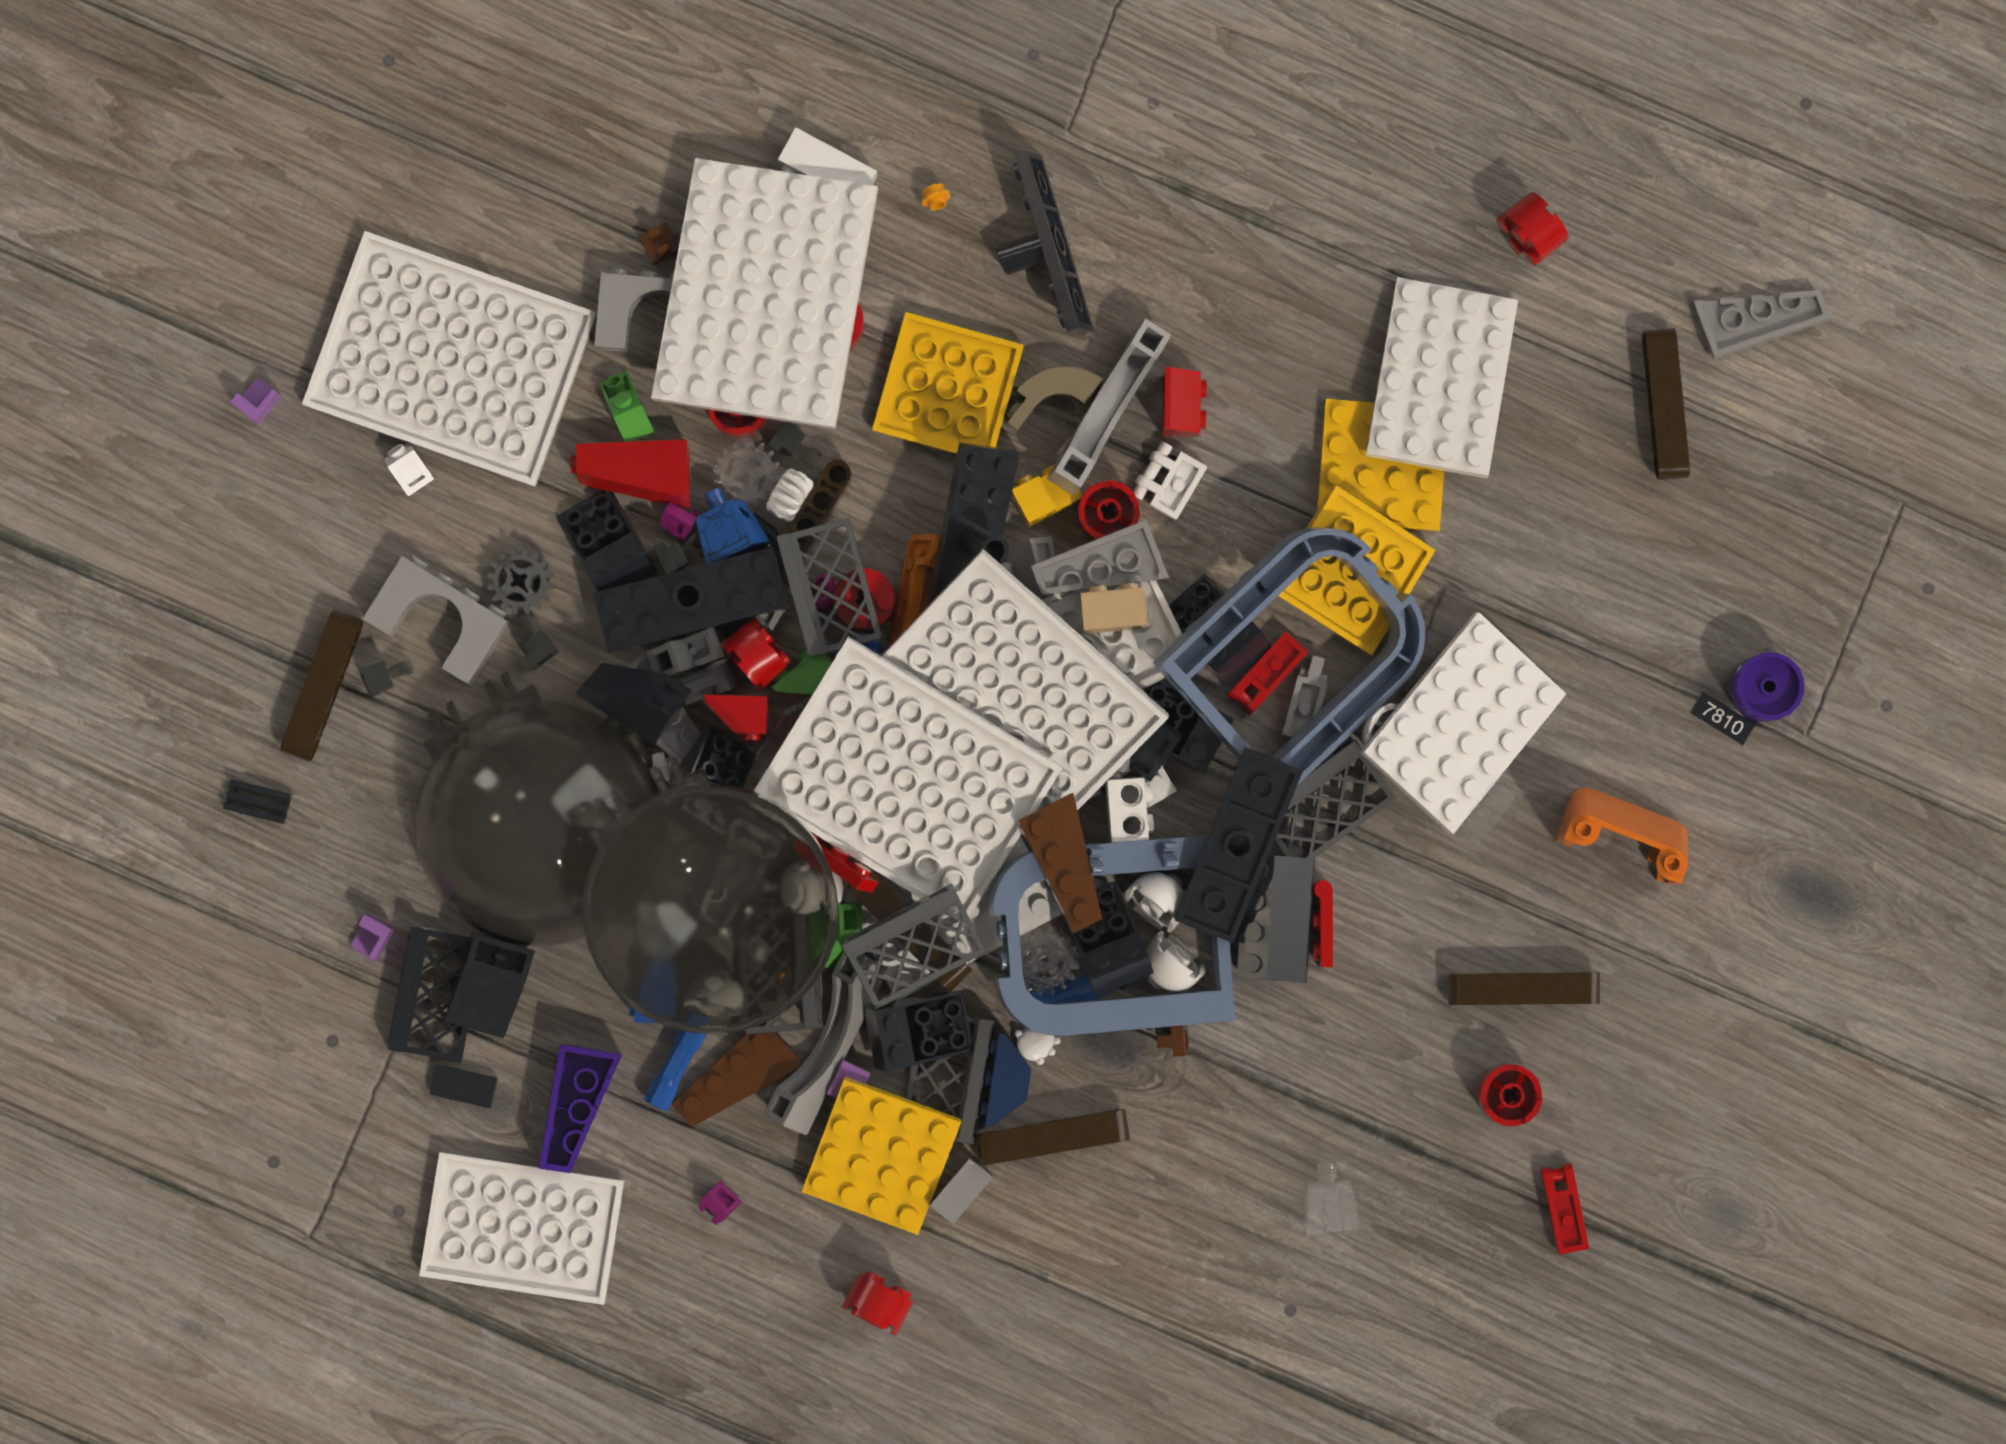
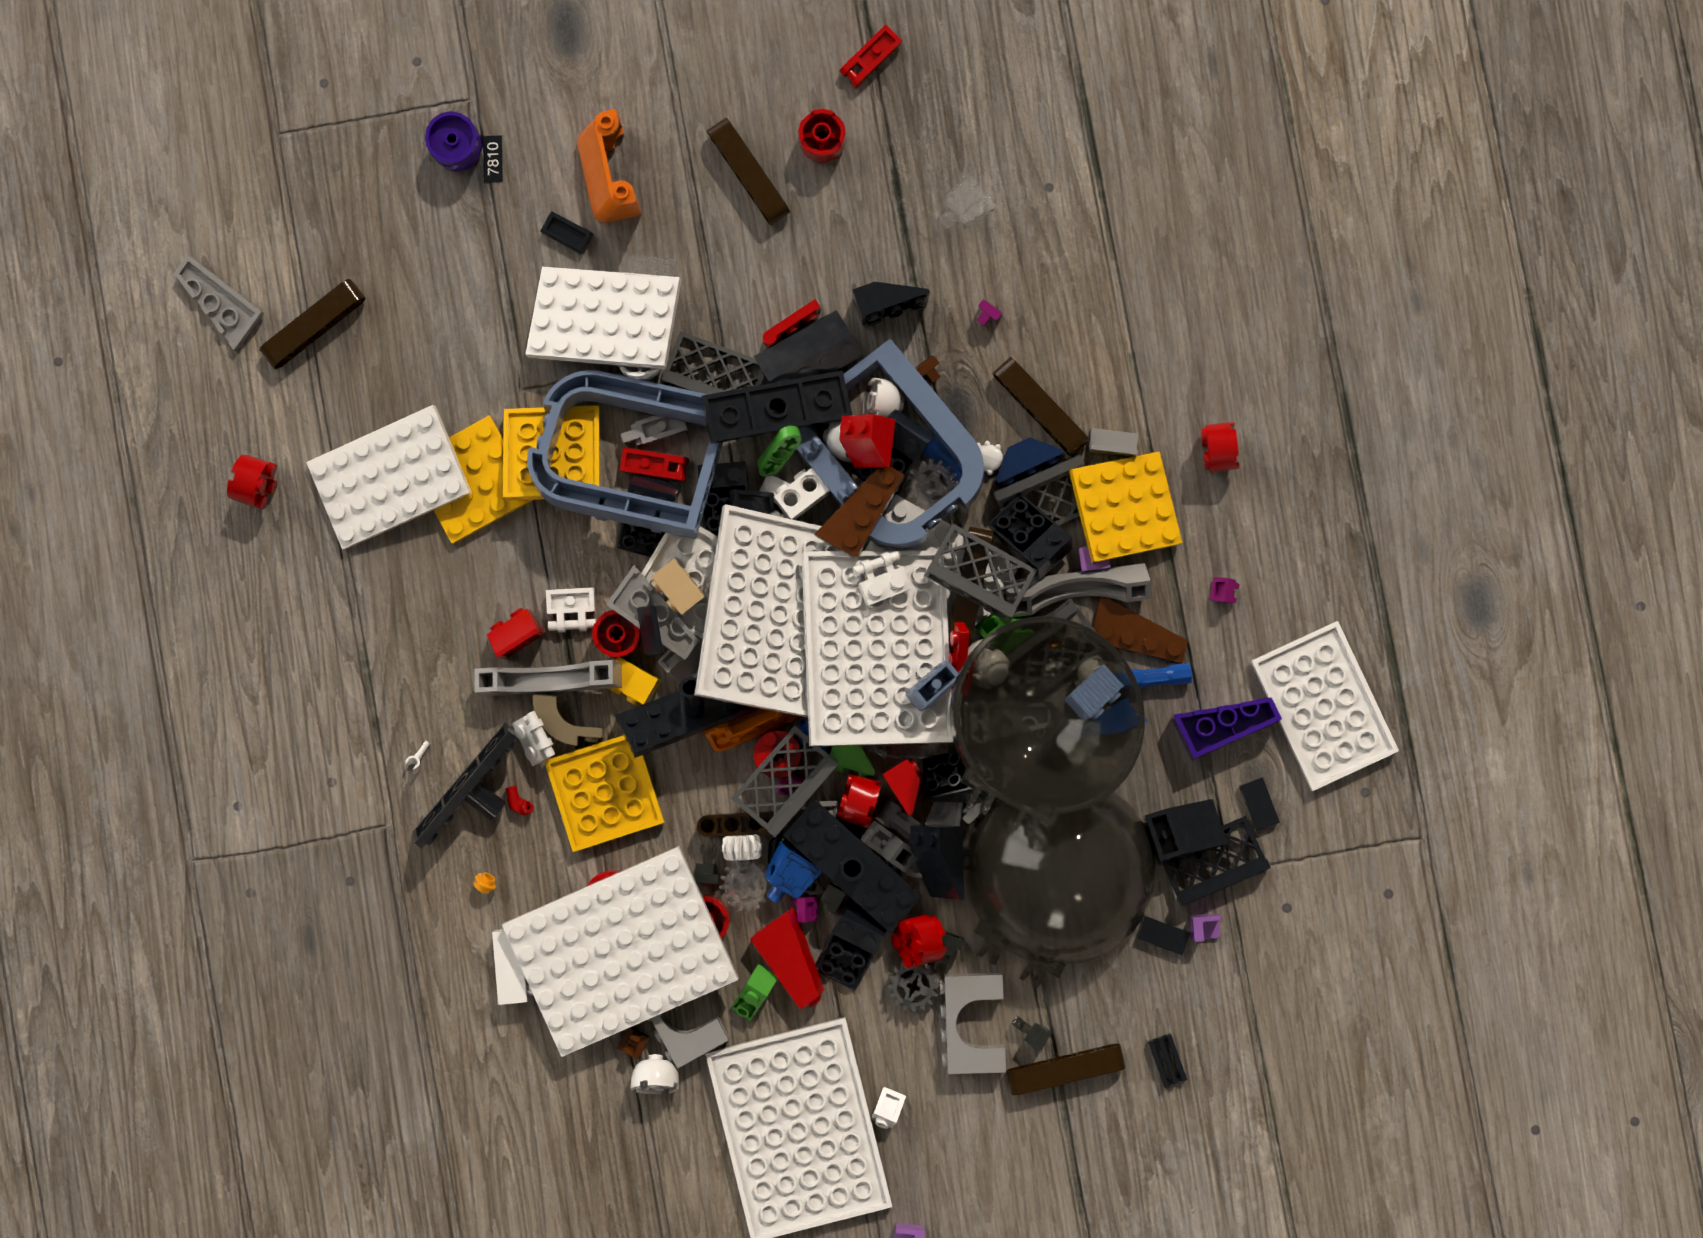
camera: 120 degrees left, 0 degrees up
(393, 886) = (1163, 935): none -> black tile
(563, 619) = (919, 940): none -> red brick
(608, 243) = (654, 1076): none -> white cylinder
(701, 978) = (1094, 693): none -> sand blue brick
(825, 811) = (932, 686): none -> sand blue brick
(968, 830) = (885, 585): none -> white plate
(997, 286) = (518, 804): none -> red arm
(1055, 349) = (533, 738): none -> white plate
(1086, 549) = (650, 630): none -> black slope
(1117, 210) = (416, 759): none -> white hand
(1136, 917) = (867, 440): none -> red slope
(1190, 816) = (779, 443): none -> bright green beam
(1194, 1151) = (989, 312): none -> magenta tile
(1284, 1037) = (886, 299): none -> black slope
(1586, 745) = (566, 232): none -> black tile

